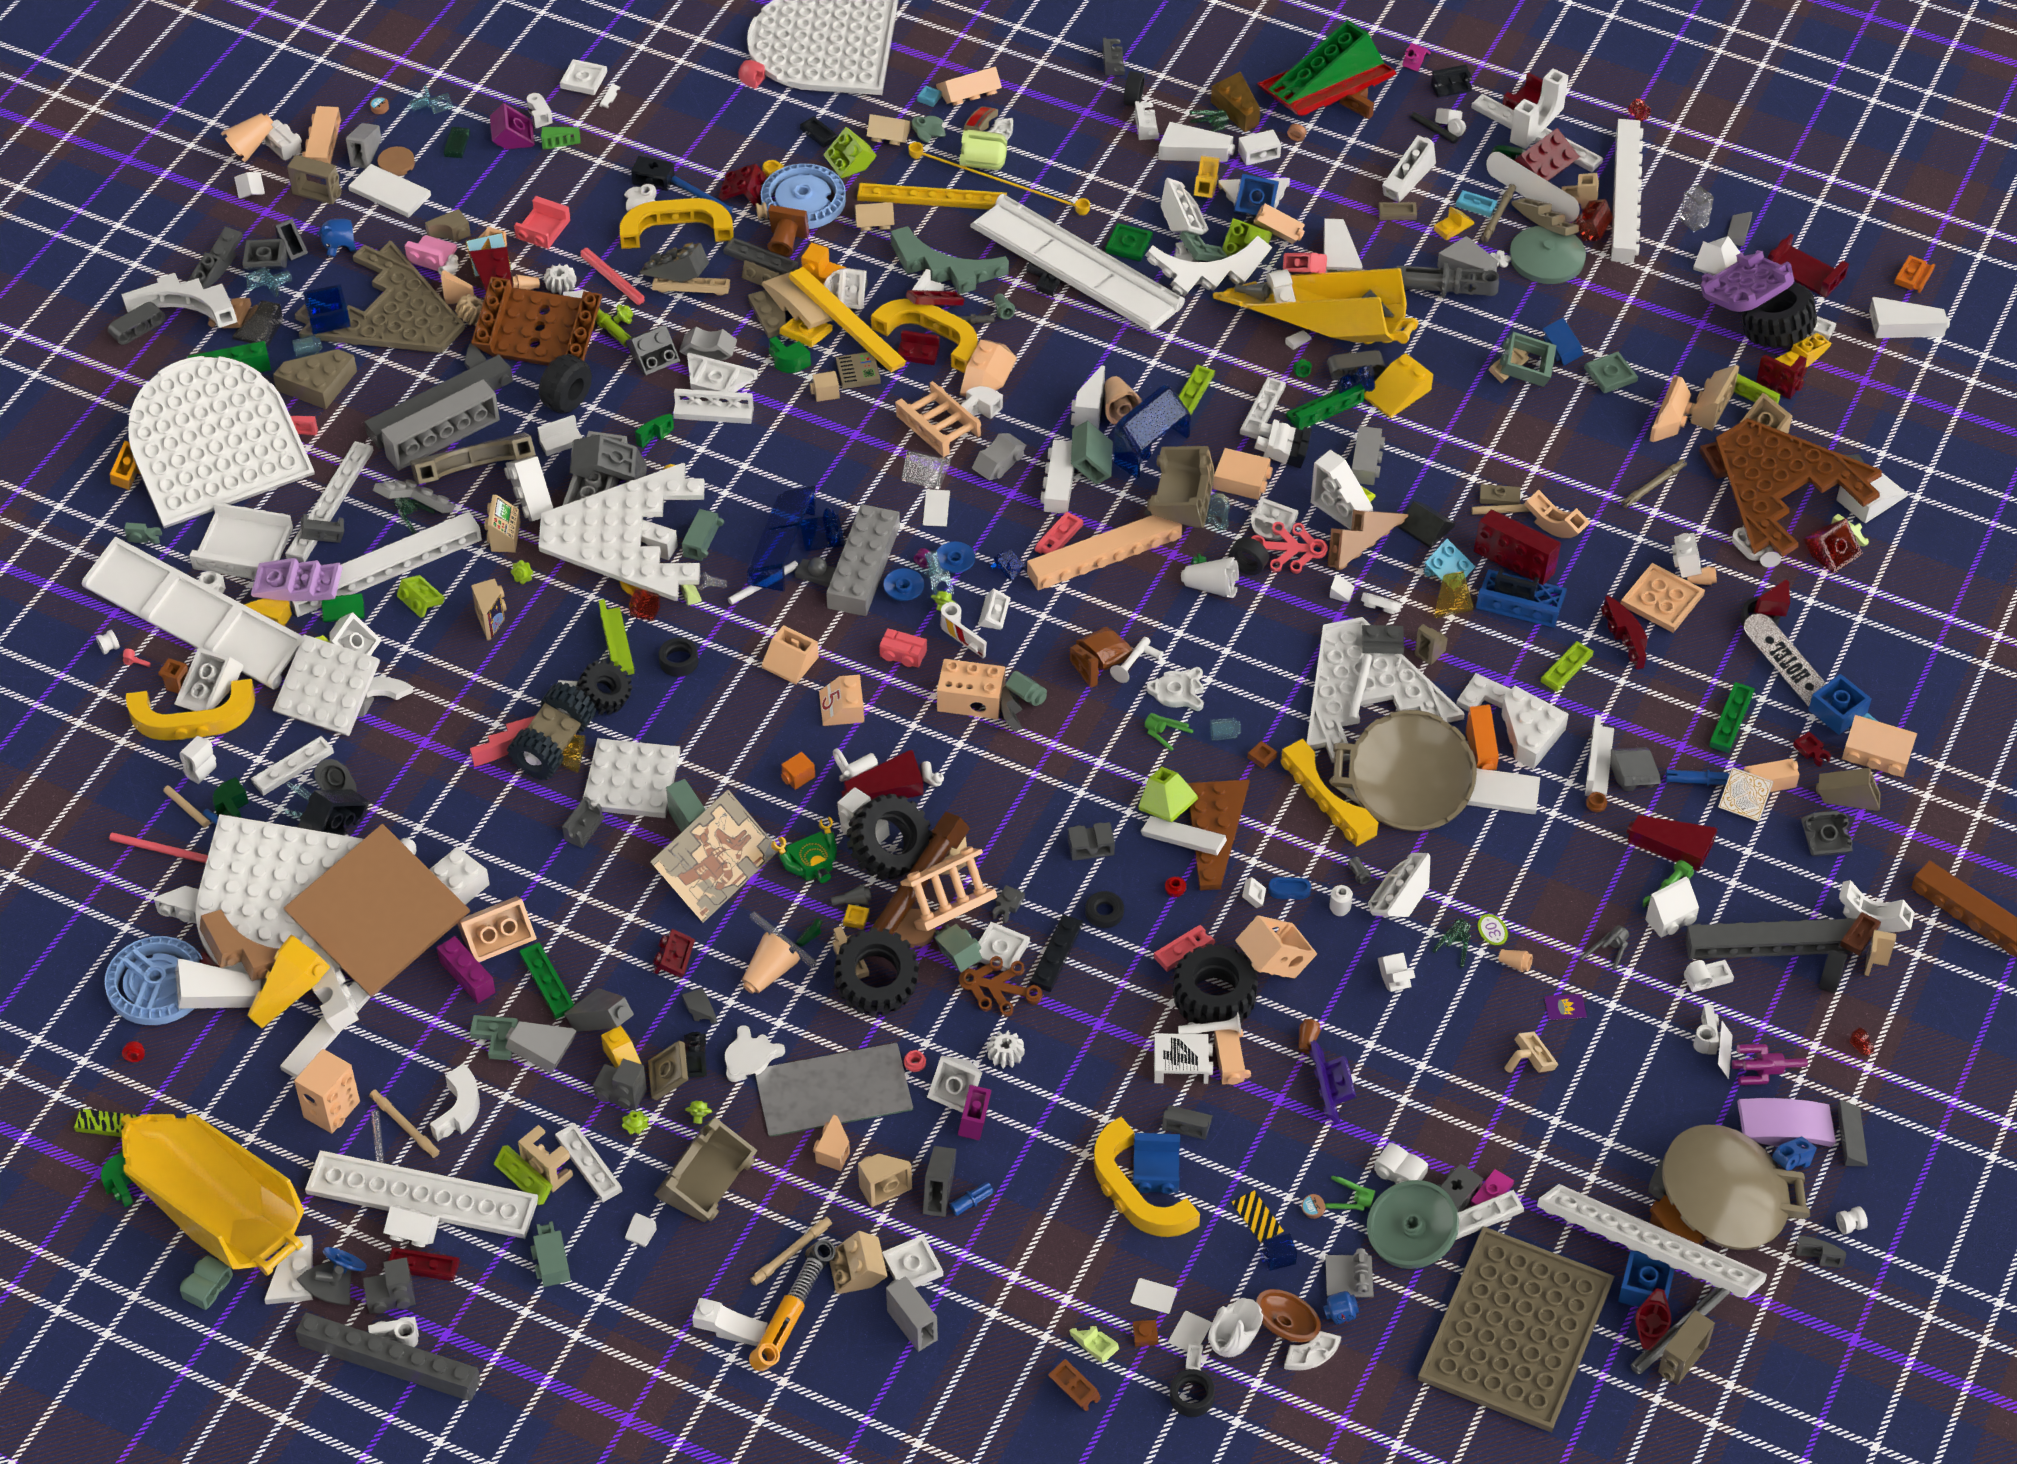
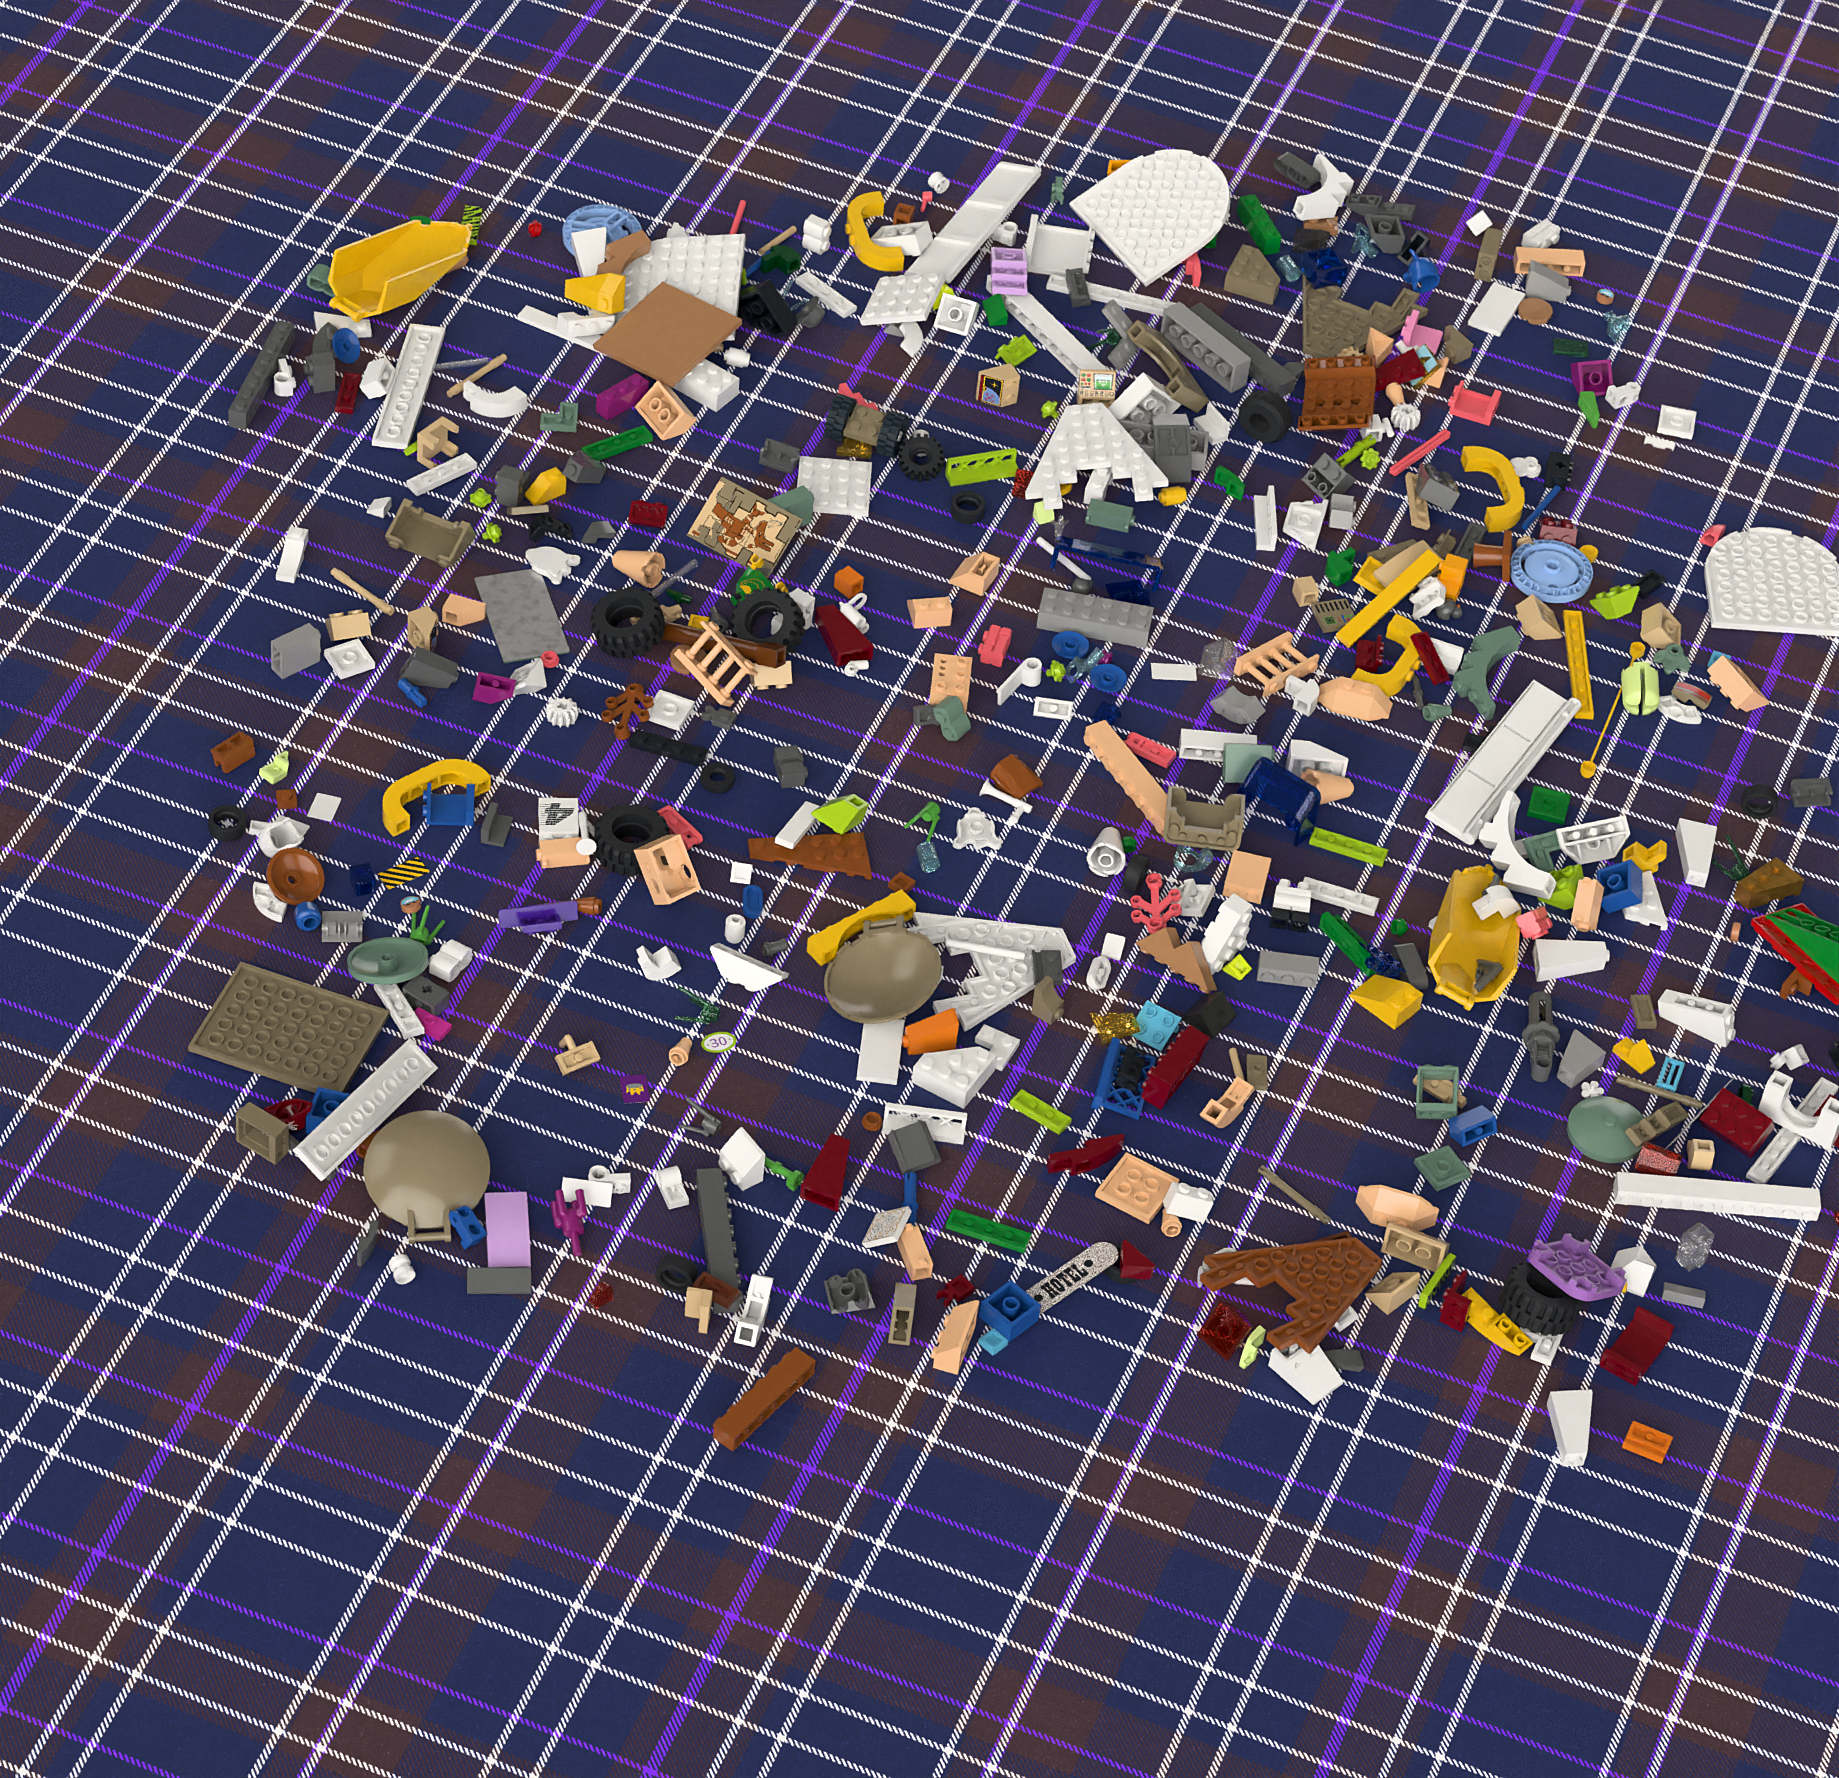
camera: 80 degrees right, 5 degrees down
(248, 135) = (1527, 207): light nougat cone -> none
(274, 609) = (980, 267): yellow slope -> none
(332, 1087) = (488, 319): light nougat piece -> none
(540, 1043) = (549, 439): light grey slope -> none
(551, 1256) = (354, 456): sand green brick -> none
(791, 1307) = (304, 586): piece -> none
(958, 946) = (662, 677): sand green brick -> none
(1085, 664) = (986, 760): dark orange wing -> none
(1145, 121) = (1723, 815): white hinge -> none
(1175, 891) = (746, 824): red plate -> none
(1259, 147) = (1705, 901): white brick -> none
(1434, 127) = (1777, 1046): pearl dark grey bar -> none

